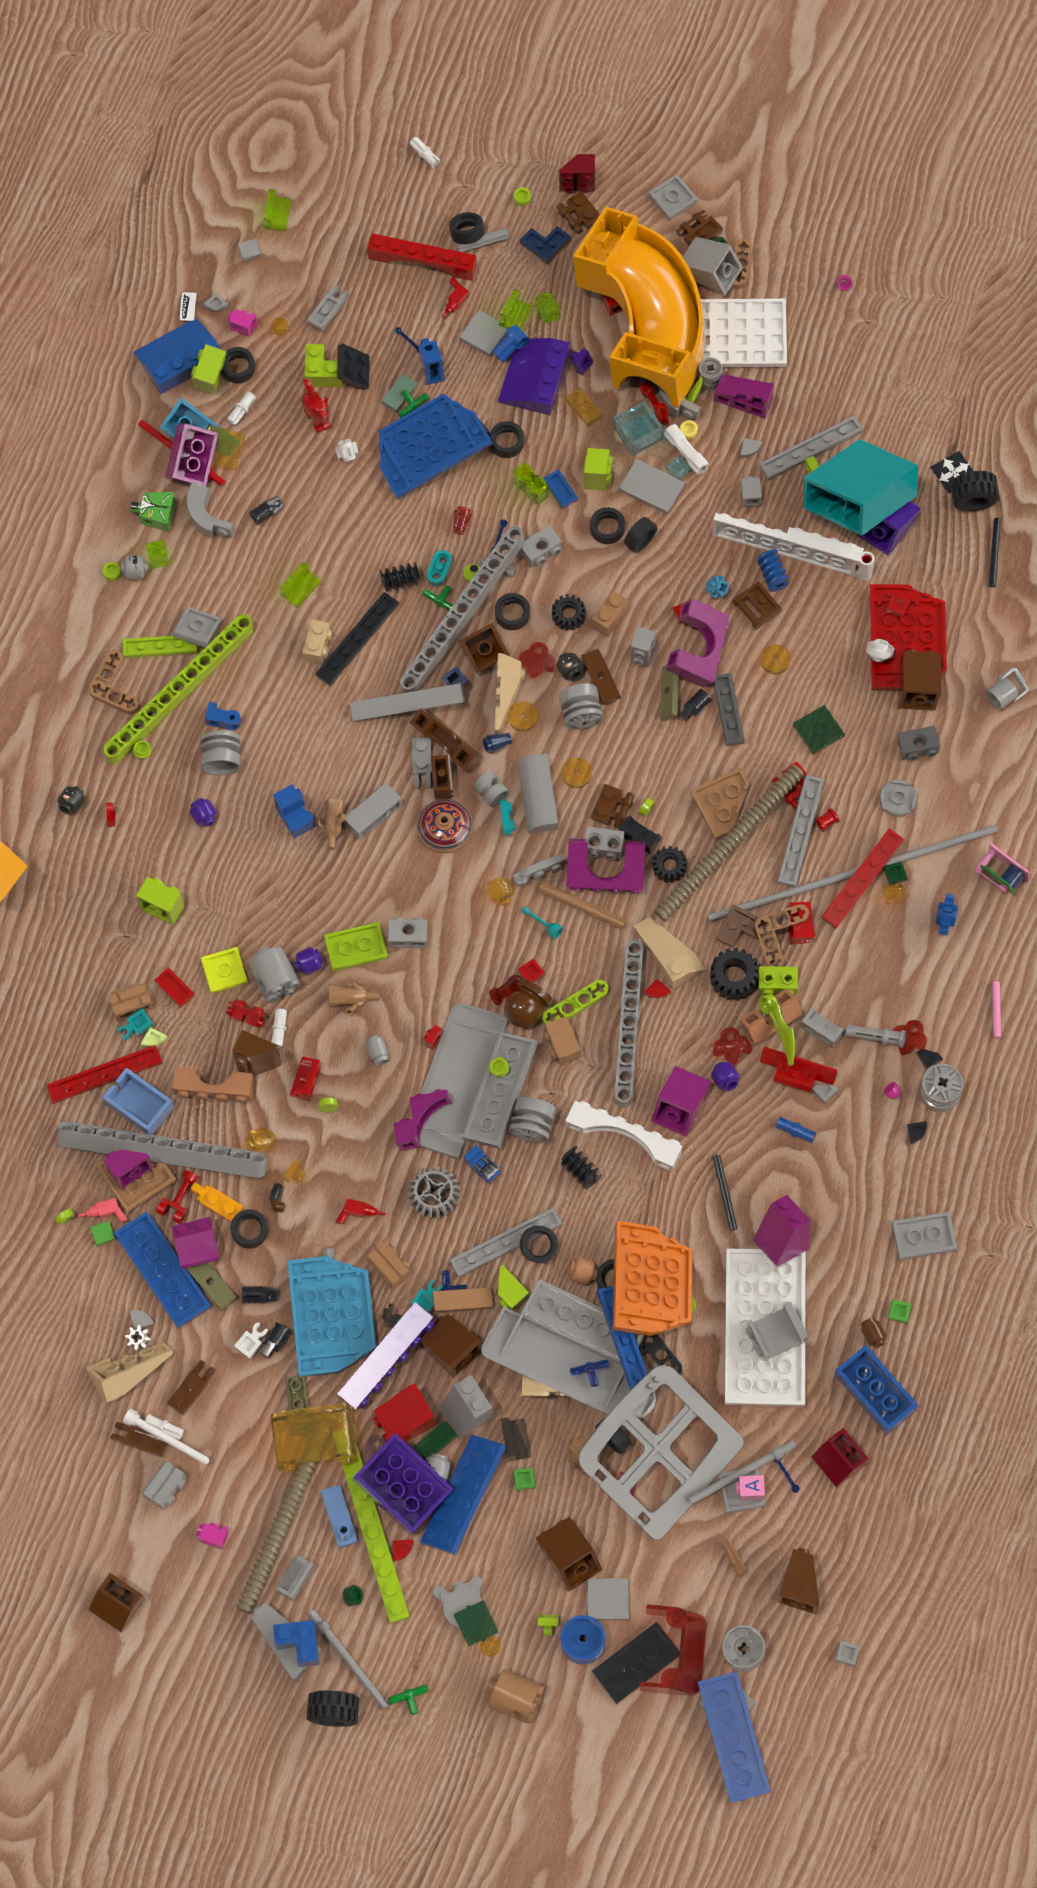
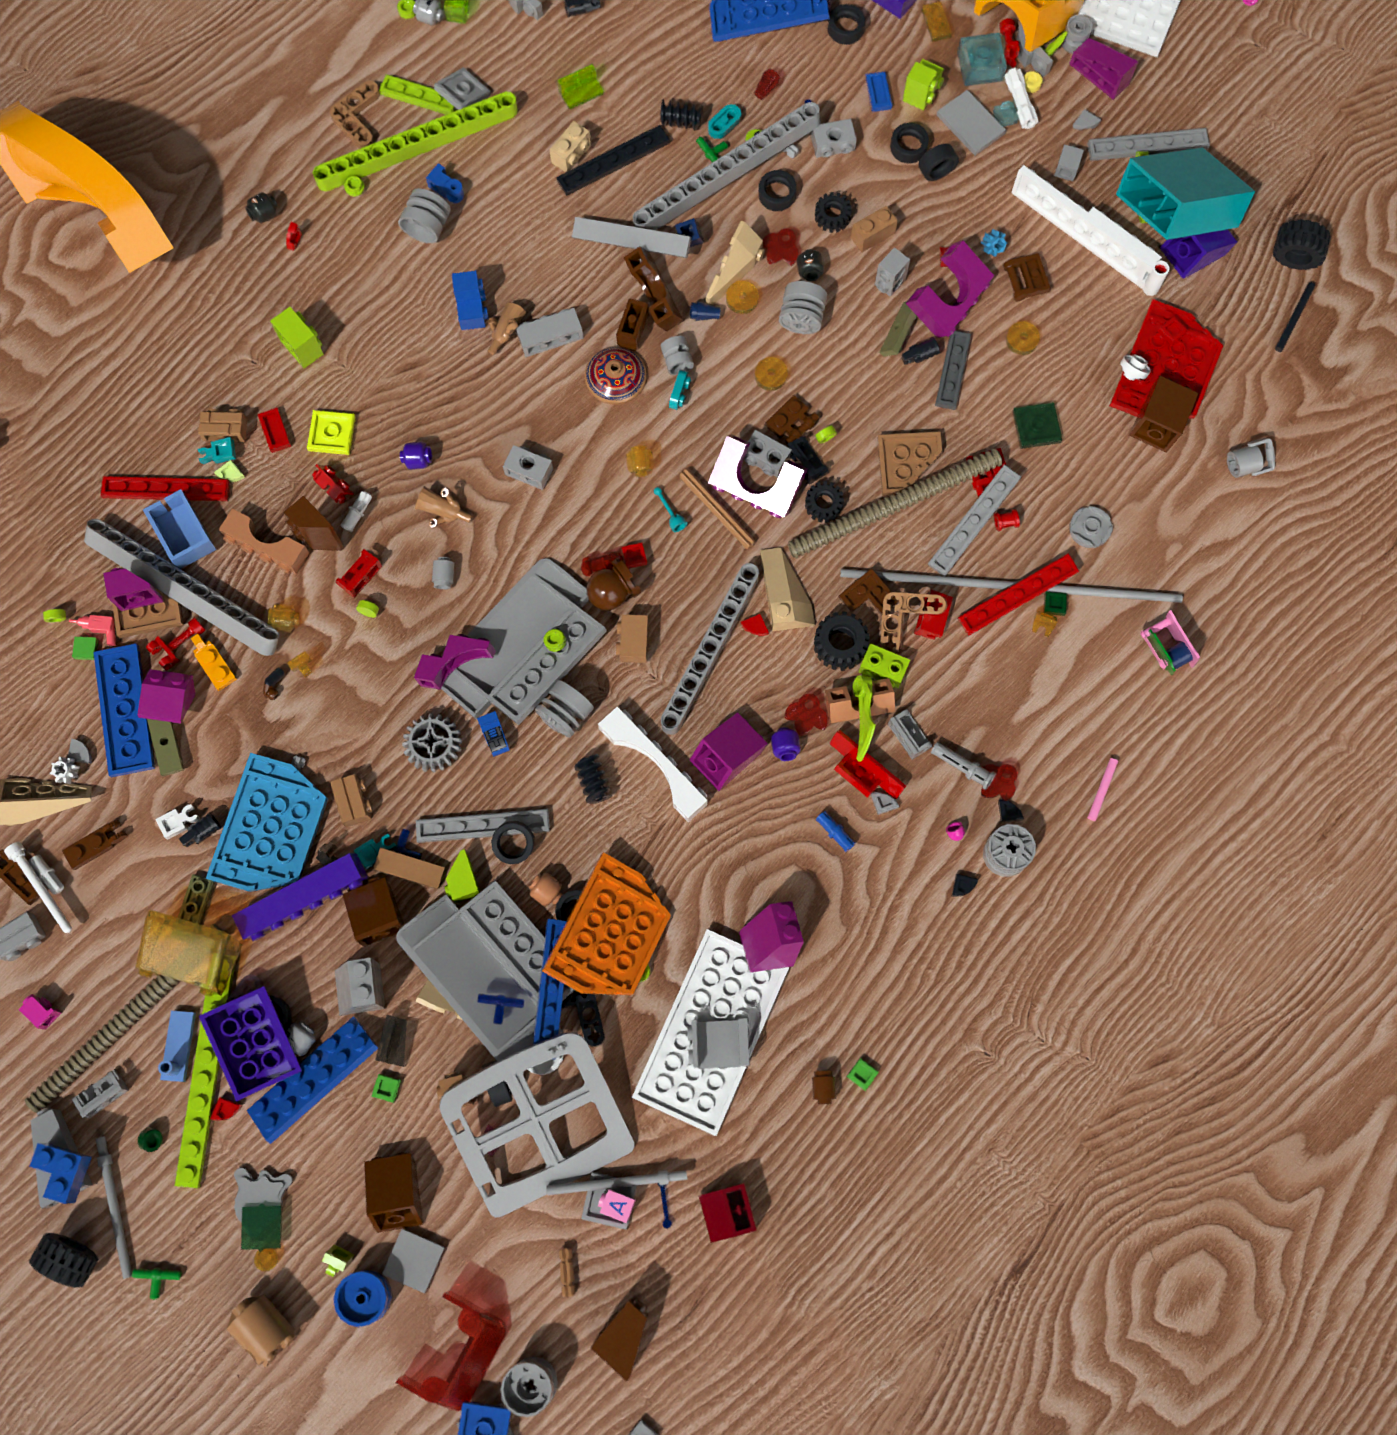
camera: 20 degrees right, 5 degrees up
(203, 812) = (382, 268): dark purple head -> none
(244, 1214) = (218, 692): black tyre -> none
(258, 1294) = (206, 775): black hinge -> none
(273, 973) = (373, 454): light grey cylinder -> none
(355, 946) = (471, 460): lime tile -> none
(357, 1209) = (347, 728): red piece -> none
(404, 1415) = (291, 968): red slope -> none
(421, 760) = (625, 290): light grey hinge -> none
(432, 1036) = (504, 582): red plate -> none
(436, 1440) = (314, 1007): dark green tile -> none
(483, 647) = (729, 210): reddish brown slope -> none
(532, 484) = (850, 72): clear neon green brick -> none
(537, 794) = (722, 379): light grey brick -> none
(537, 870) = (687, 455): light grey hinge -> none
(574, 1002) = (664, 602): lime beam -> none
(597, 668) = (837, 278): reddish brown tile -> none
(636, 1663) = (411, 1346): black tile -> none
(724, 1192) = (732, 867): black bar -> none
(773, 570) = (1058, 248): blue piece -> none
(876, 1390) = (799, 1154): blue brick -> none
(924, 1236) = (924, 1002): light grey tile -> none
(926, 736) = (1145, 473): dark grey brick -> none
(946, 914) = (1091, 667): blue gear -> none
(950, 468) = (1278, 215): black sticker -> none

